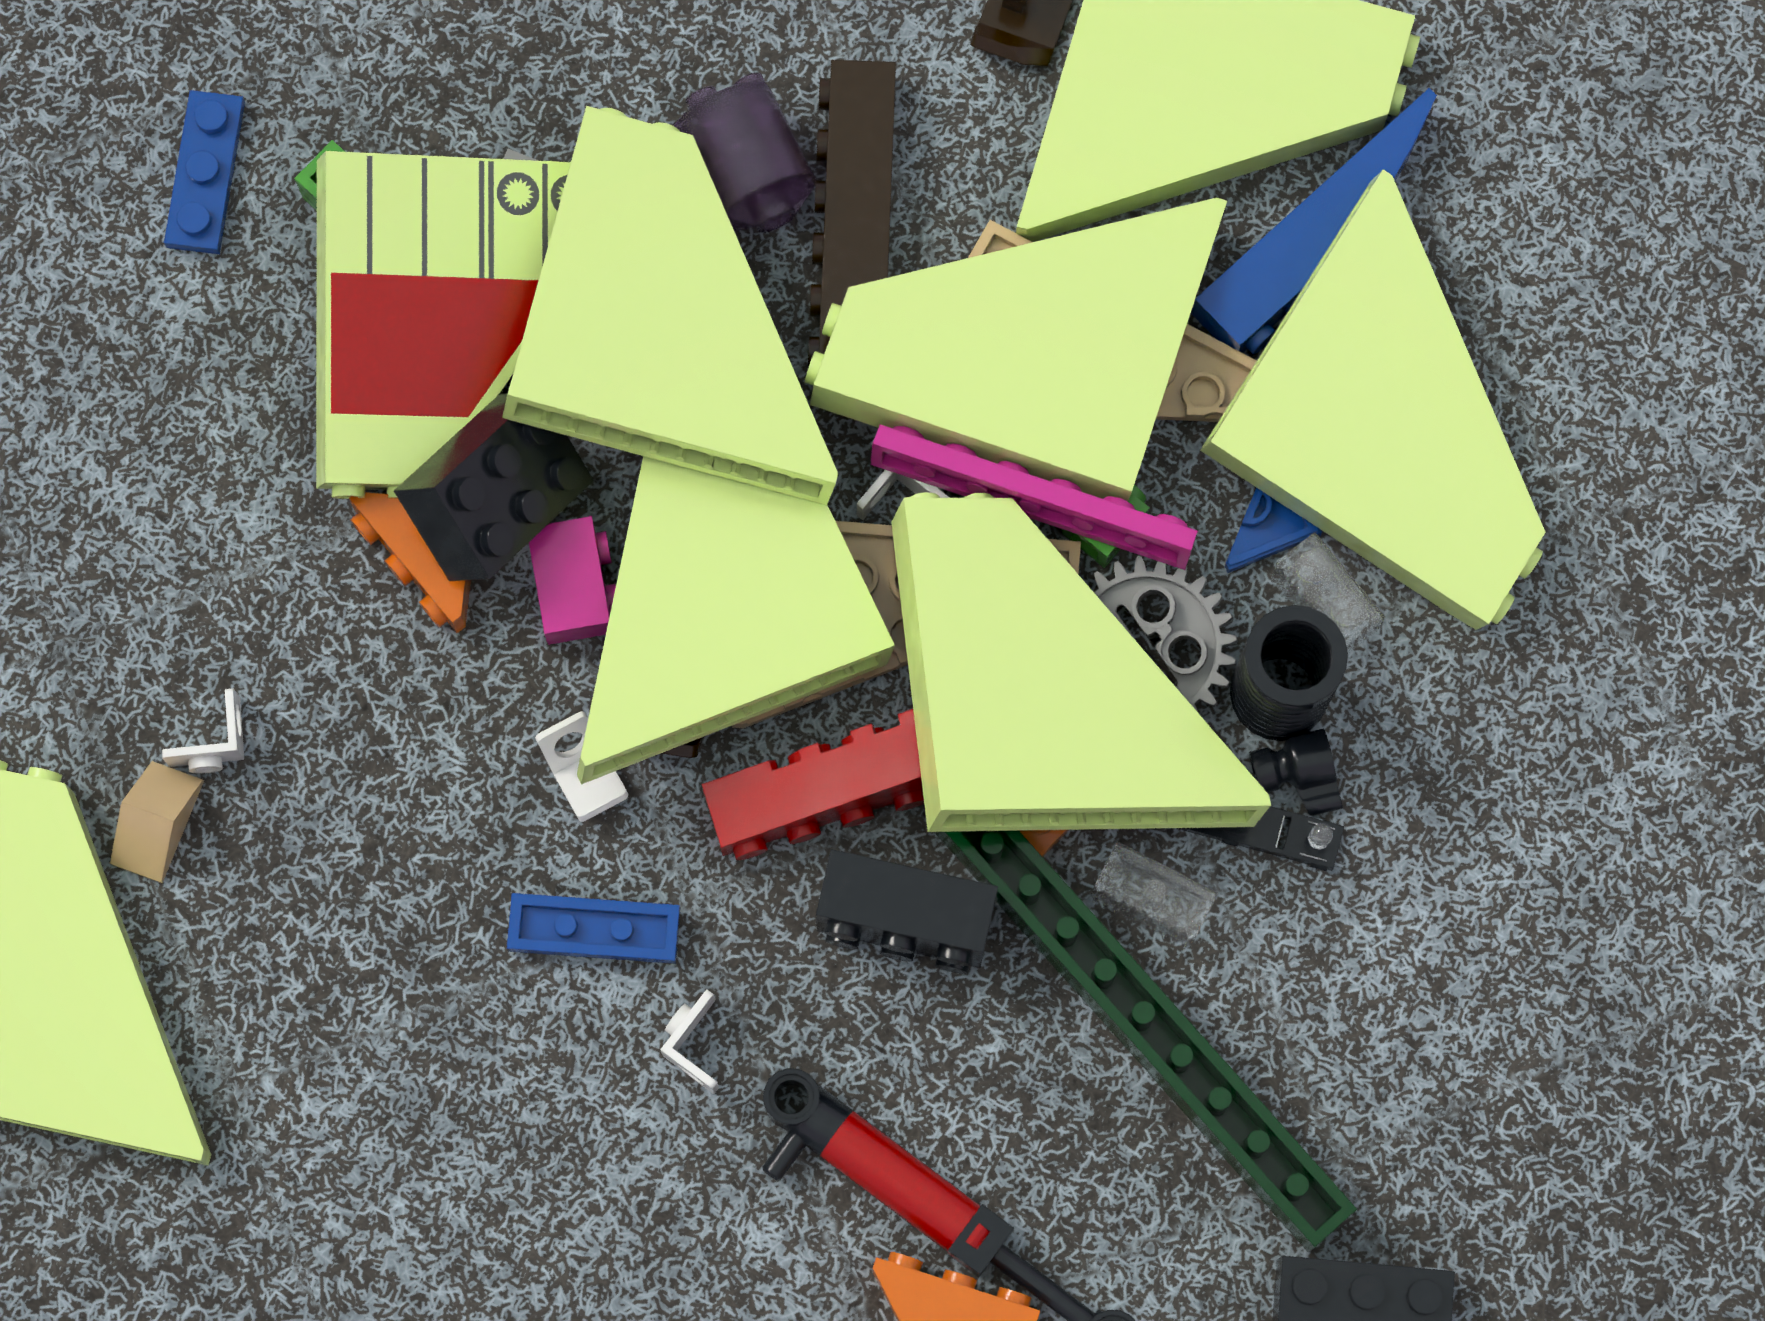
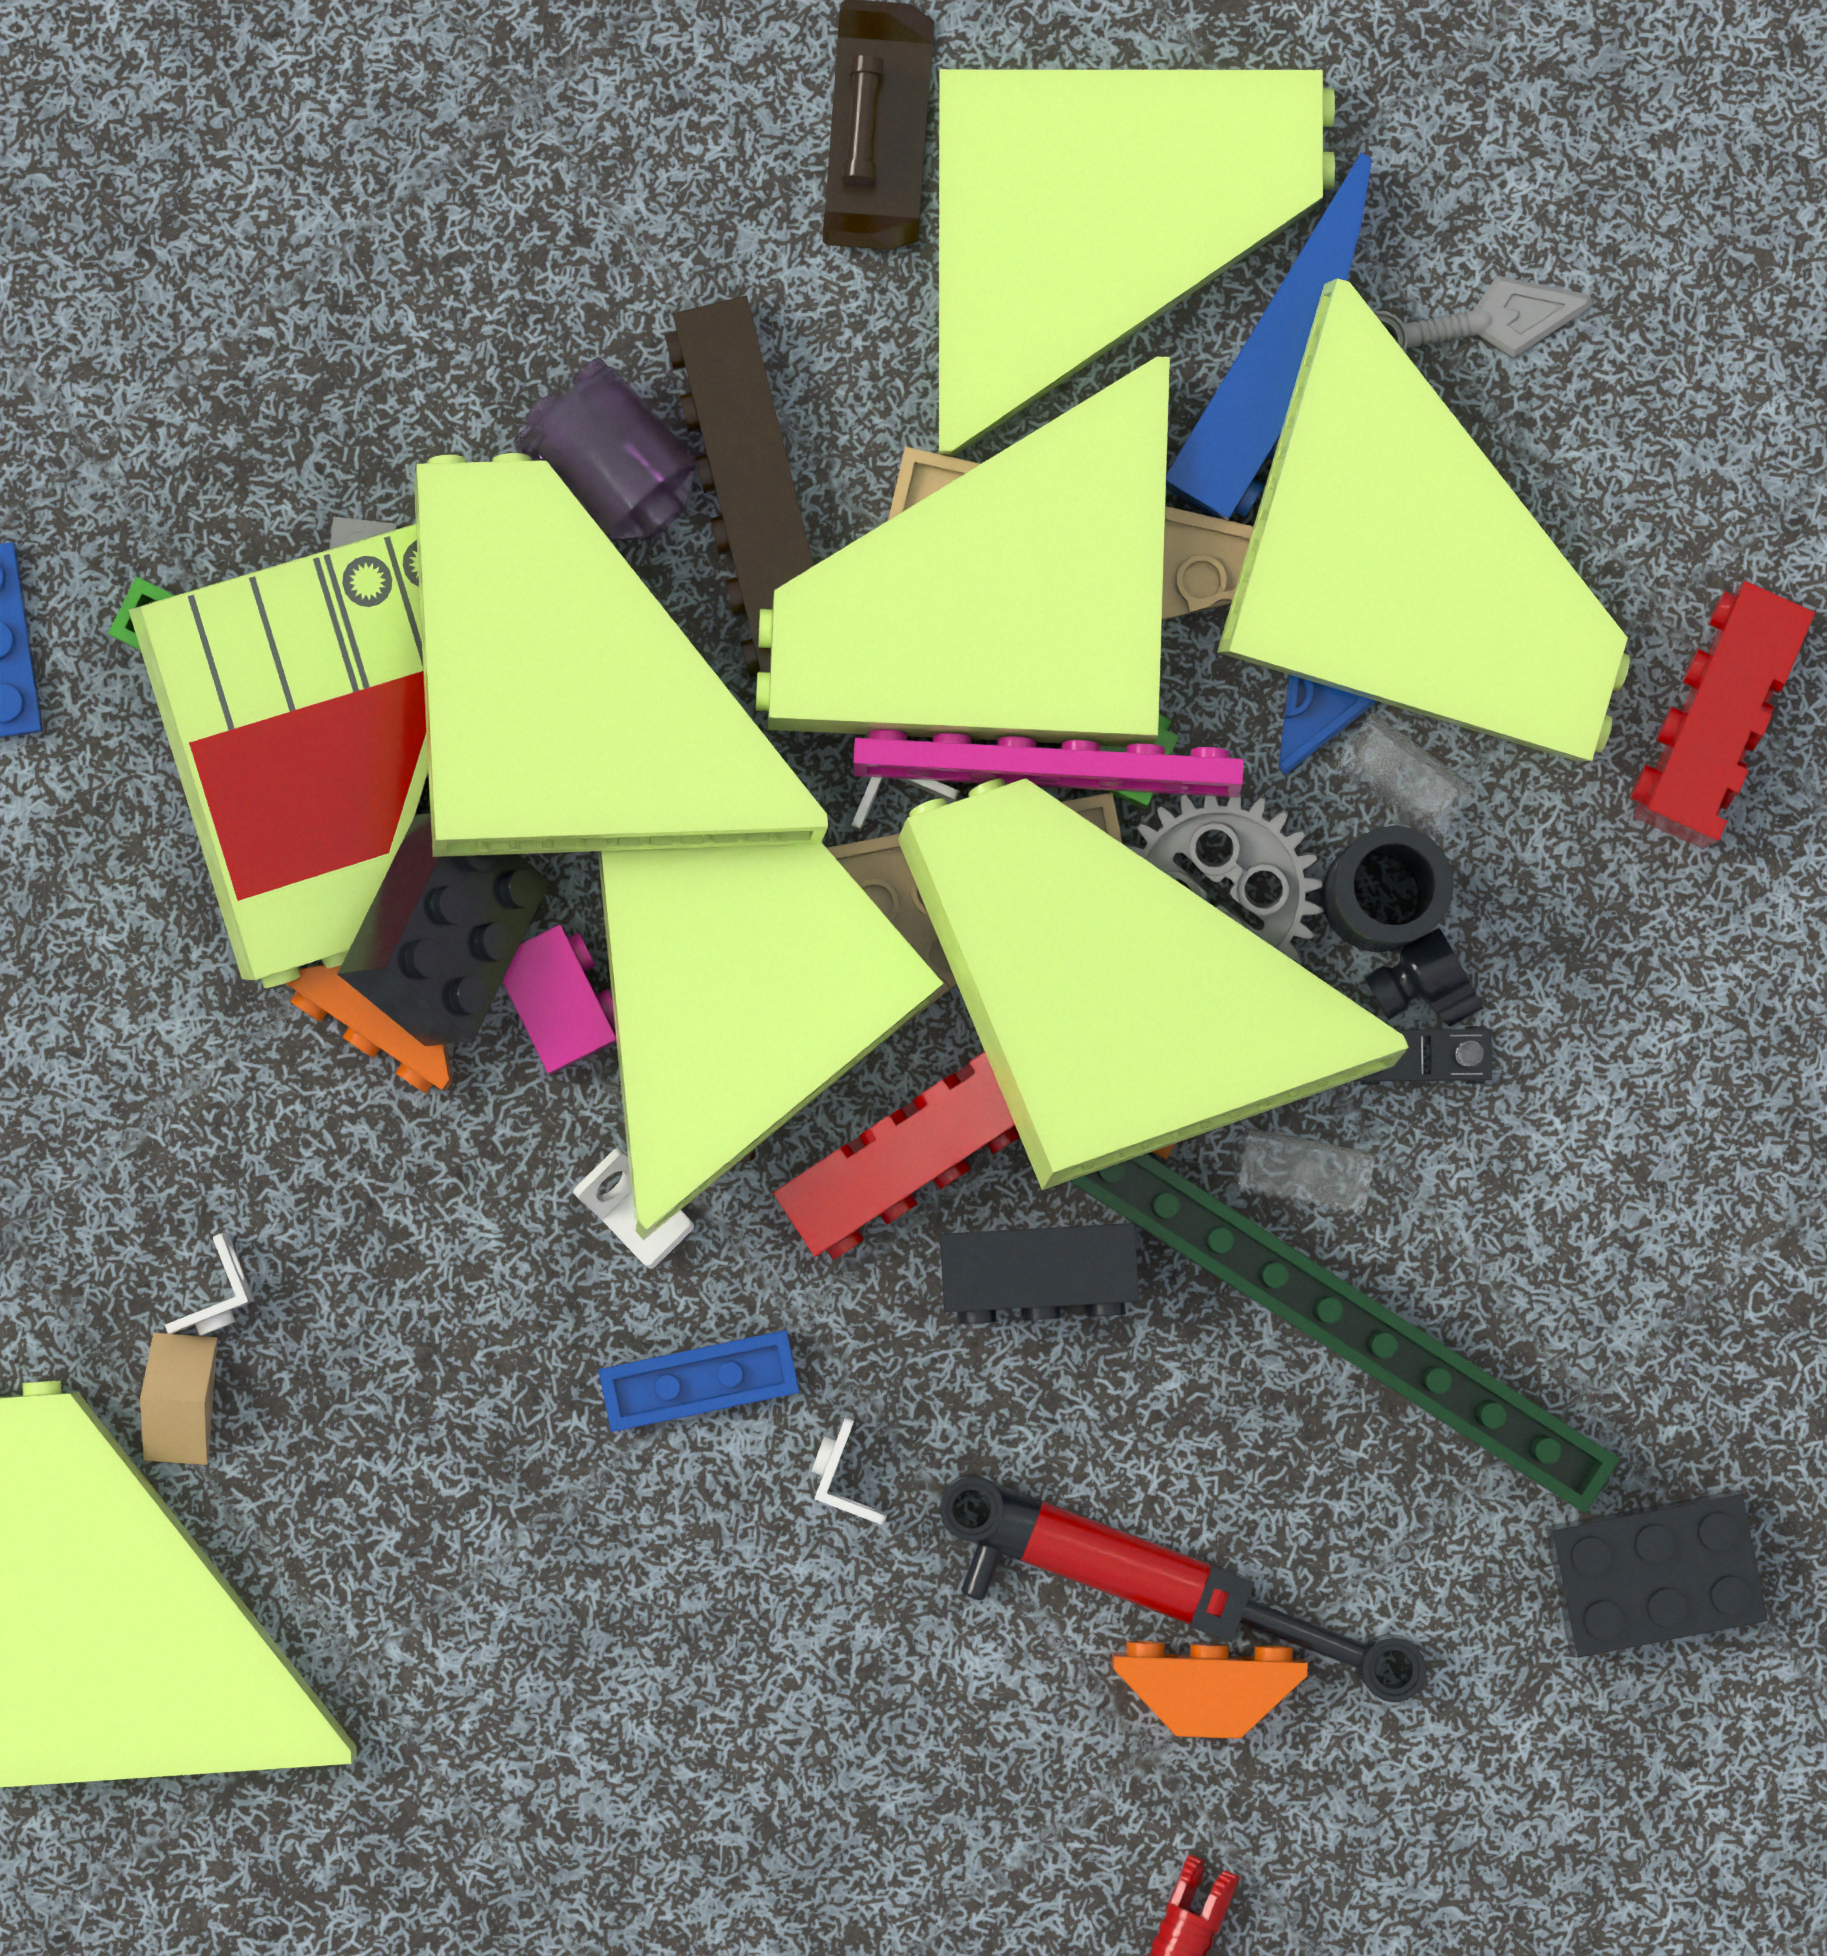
camera: 15 degrees left, 10 degrees up
(1514, 257) = (1508, 316): none -> light grey piece
(1607, 621) = (1722, 714): none -> red wedge

